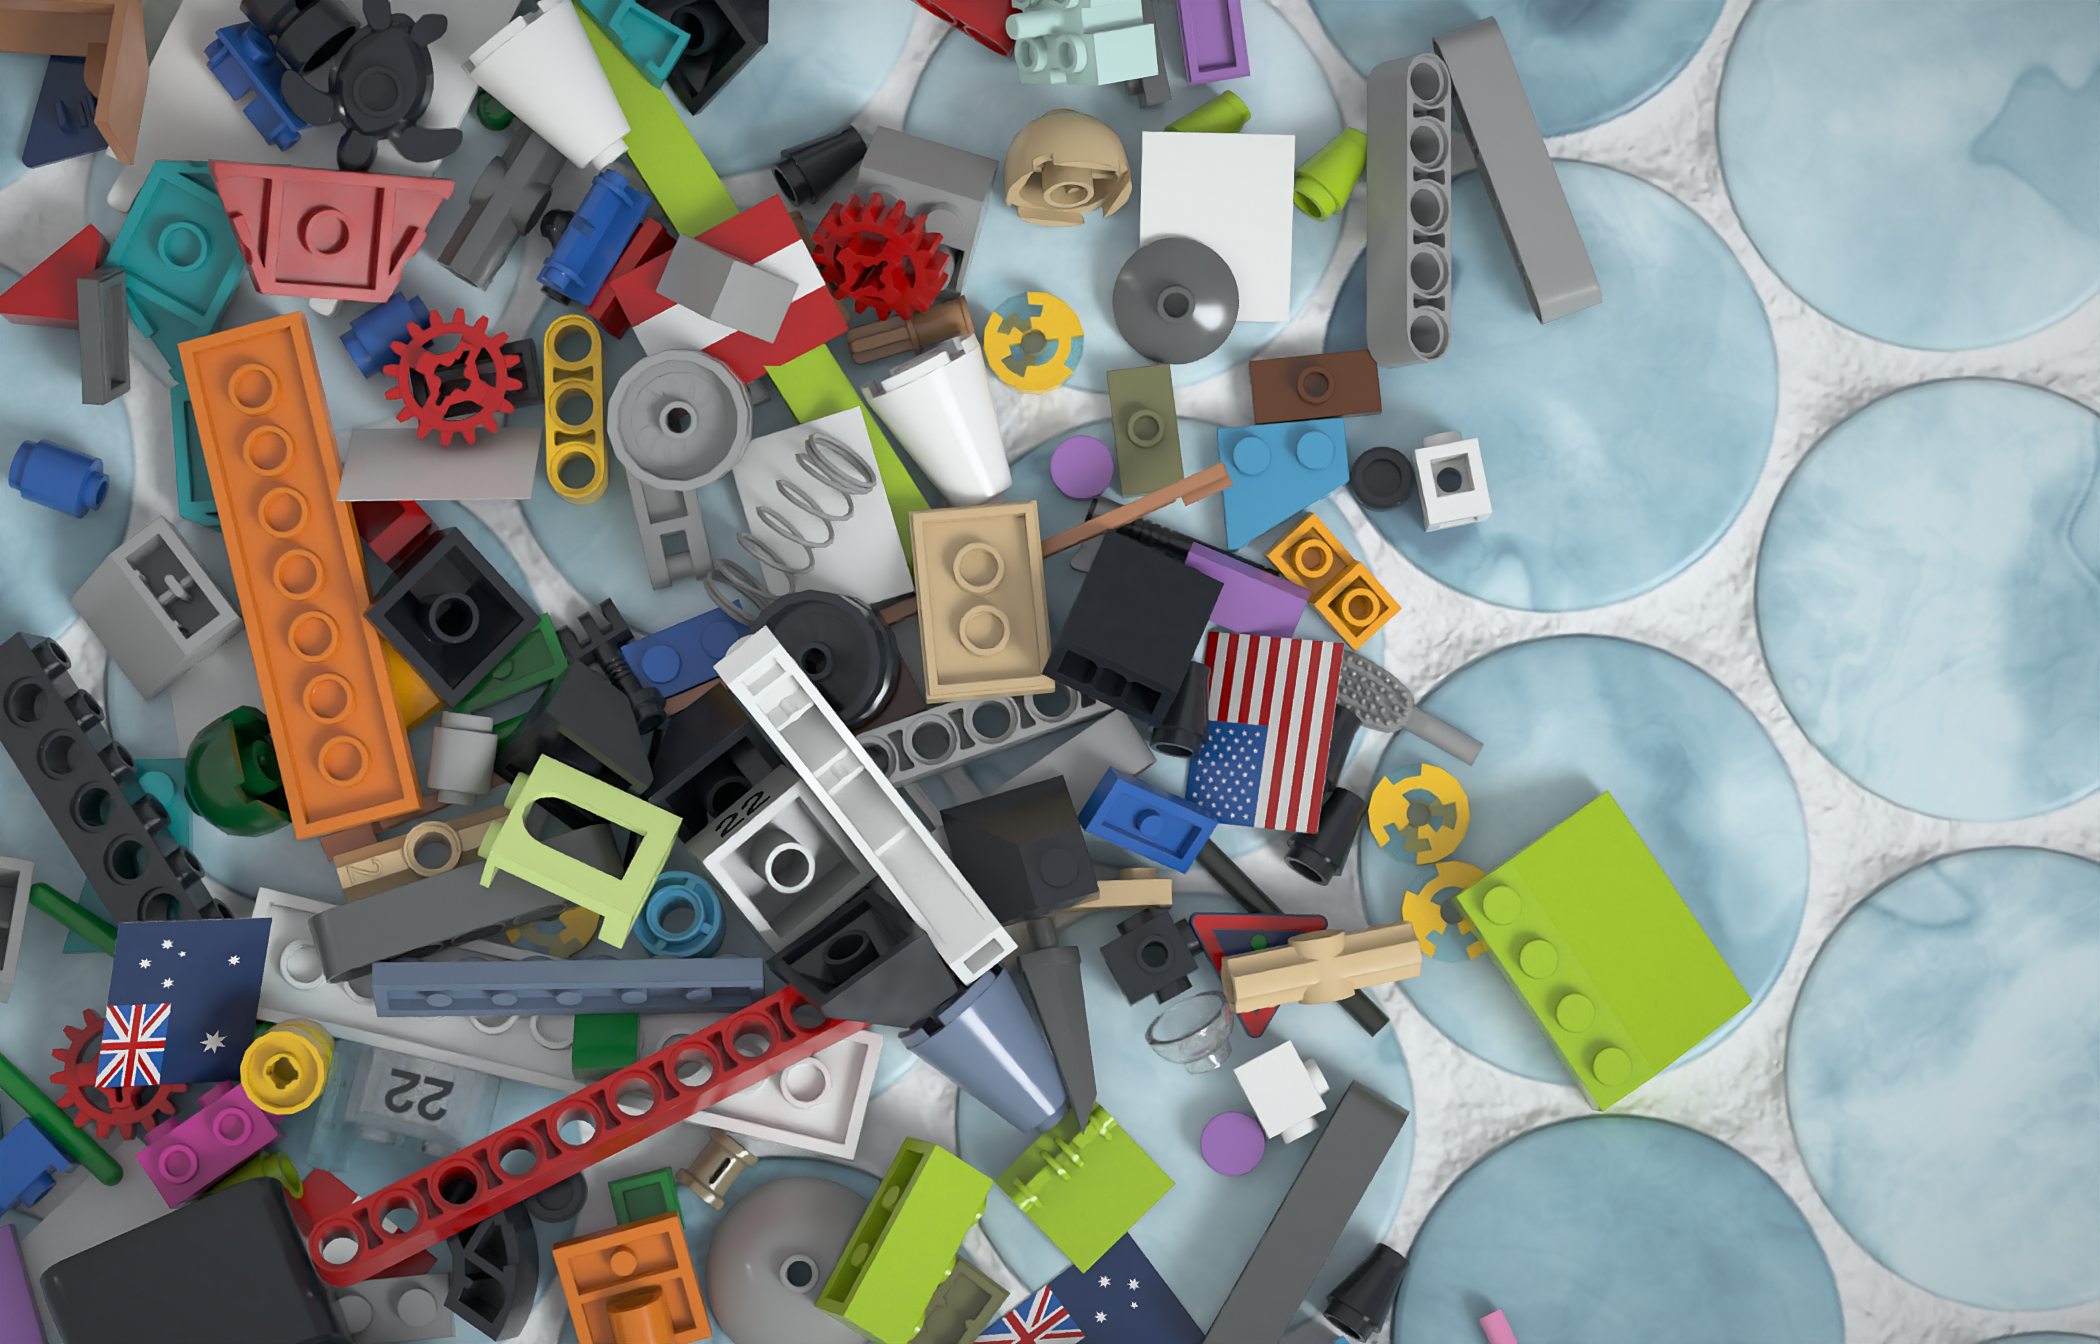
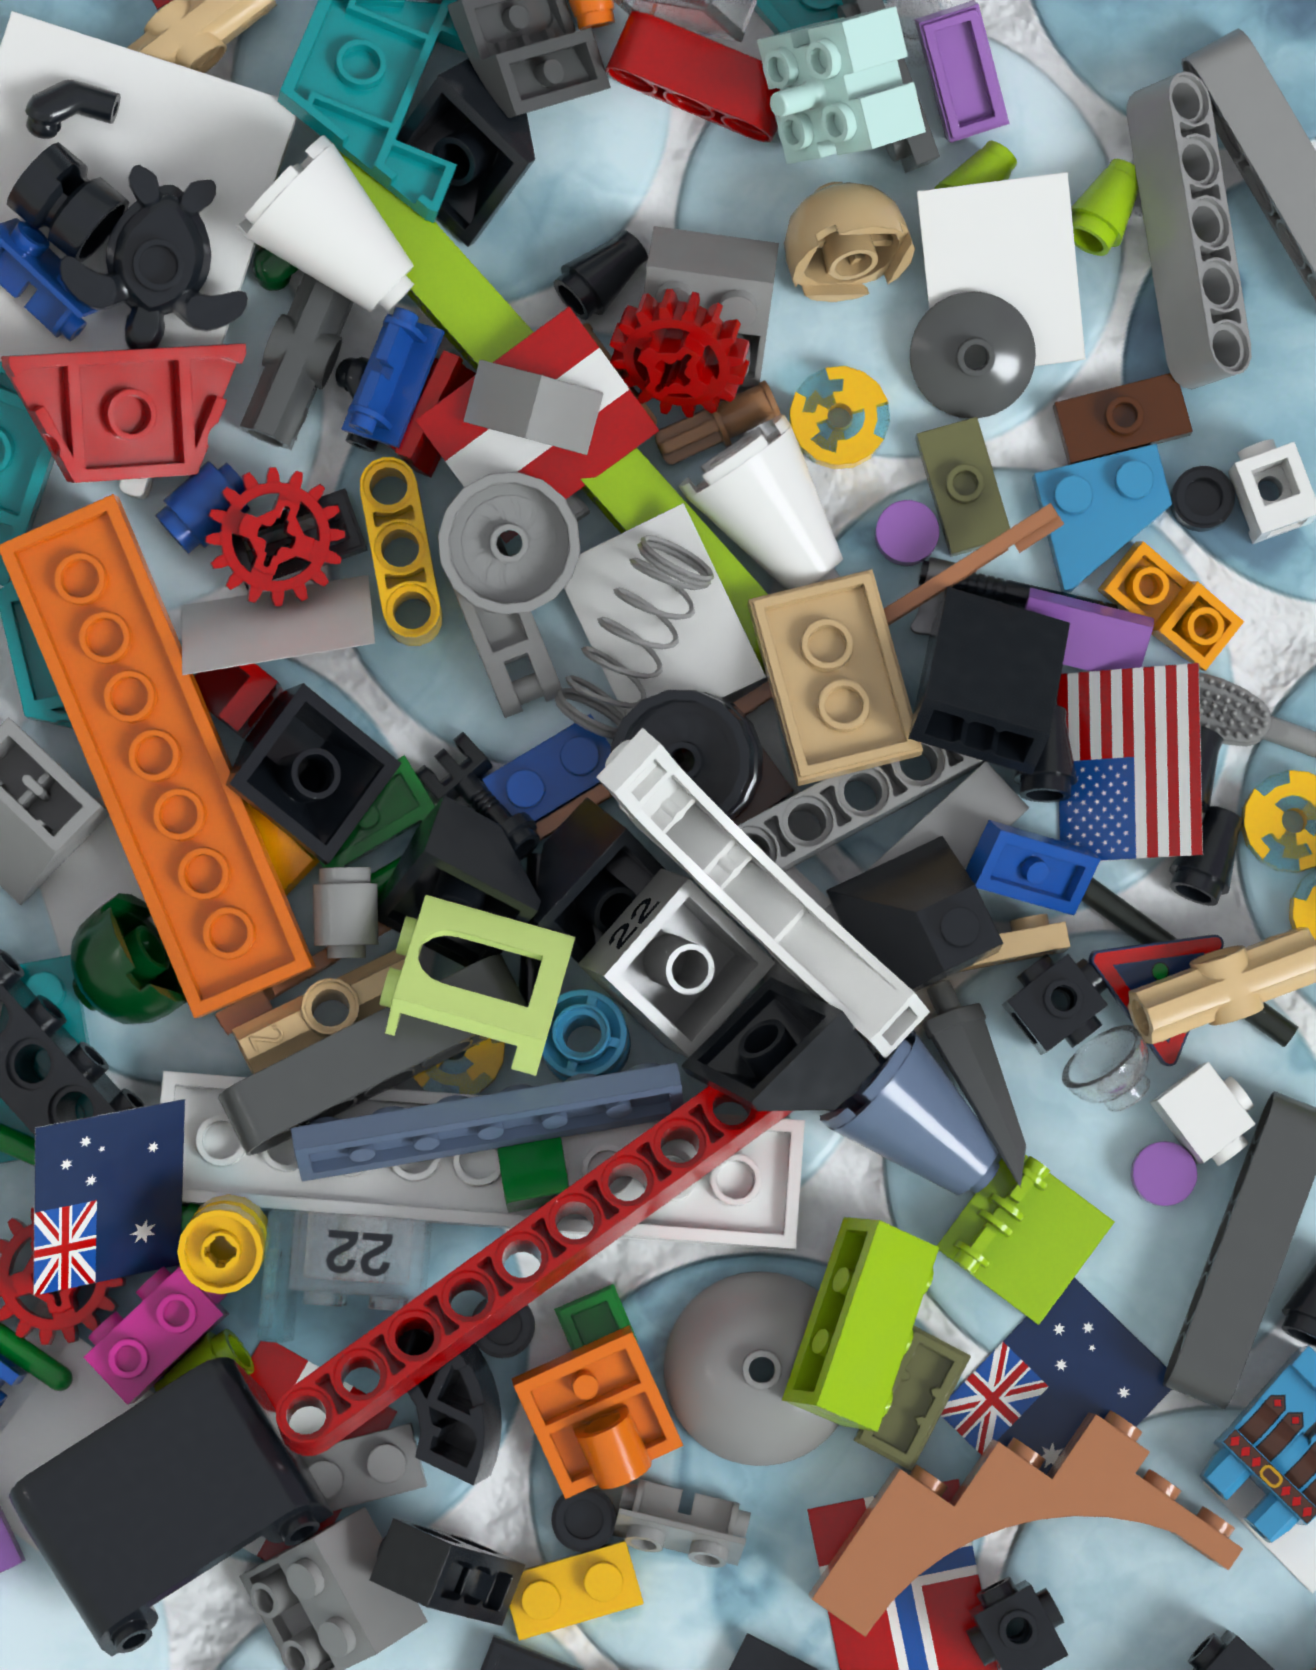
camera: 15 degrees left, 0 degrees up
(716, 1168) = (660, 1277): dark tan bush -> none

